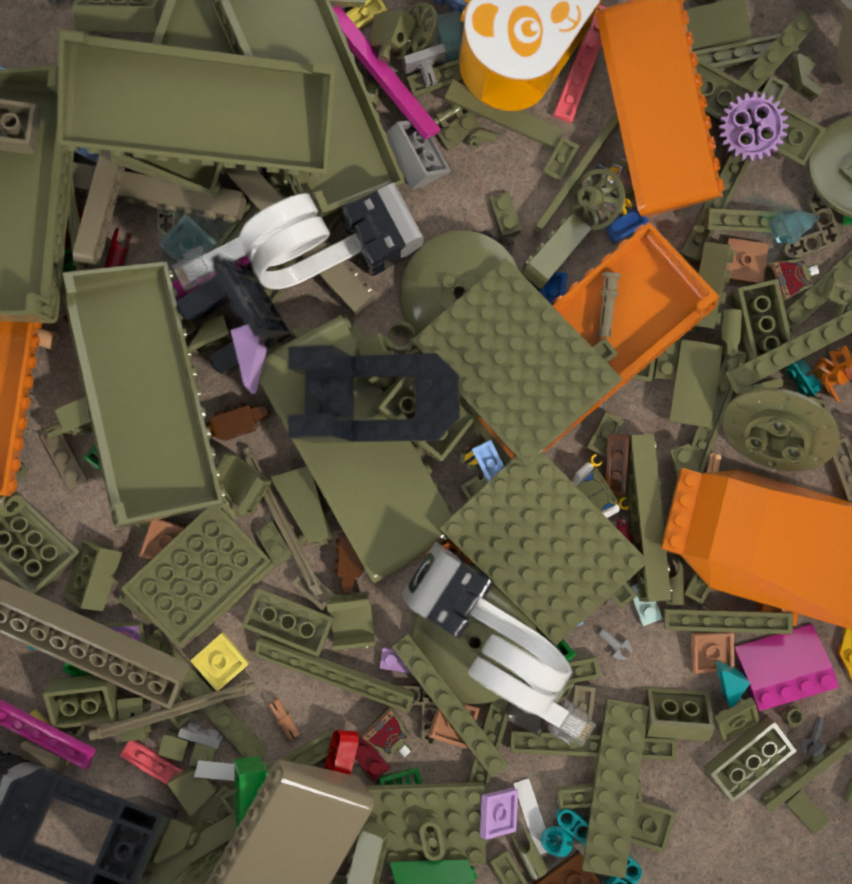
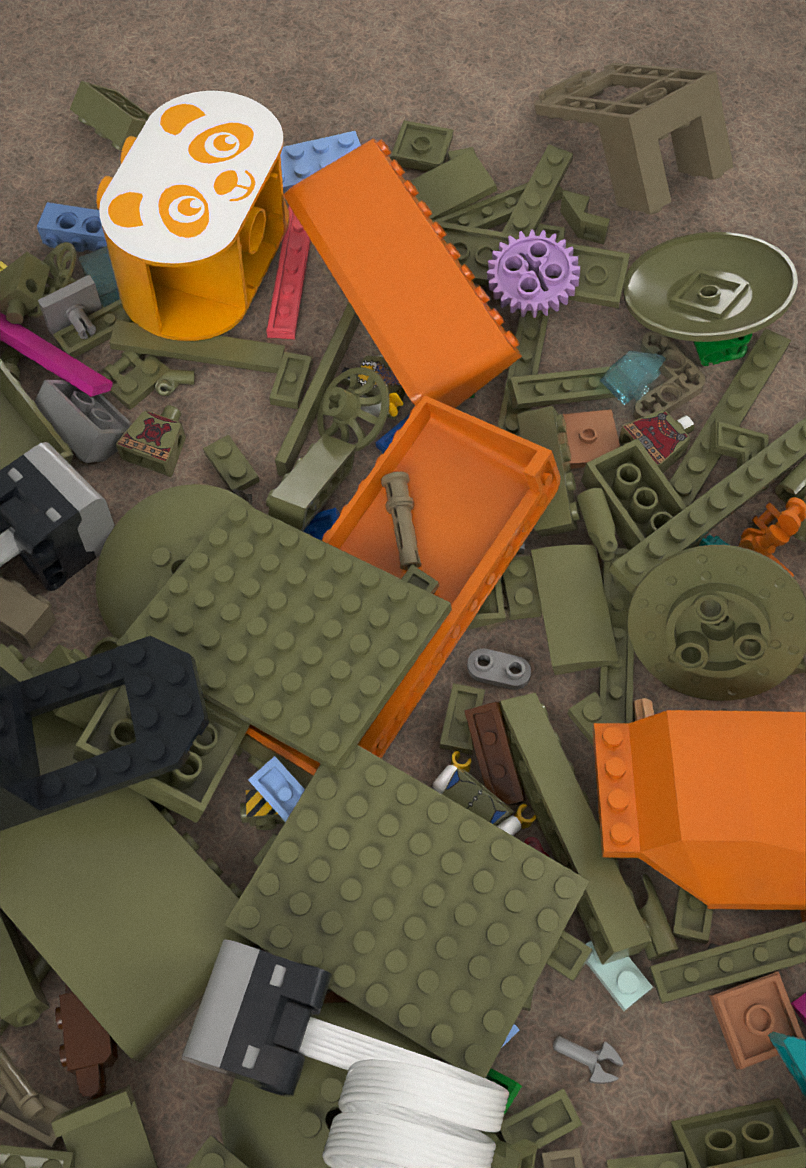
camera: 10 degrees left, 25 degrees down
(459, 183) = (154, 441): none -> olive torso
(636, 408) = (498, 670): none -> light grey plate

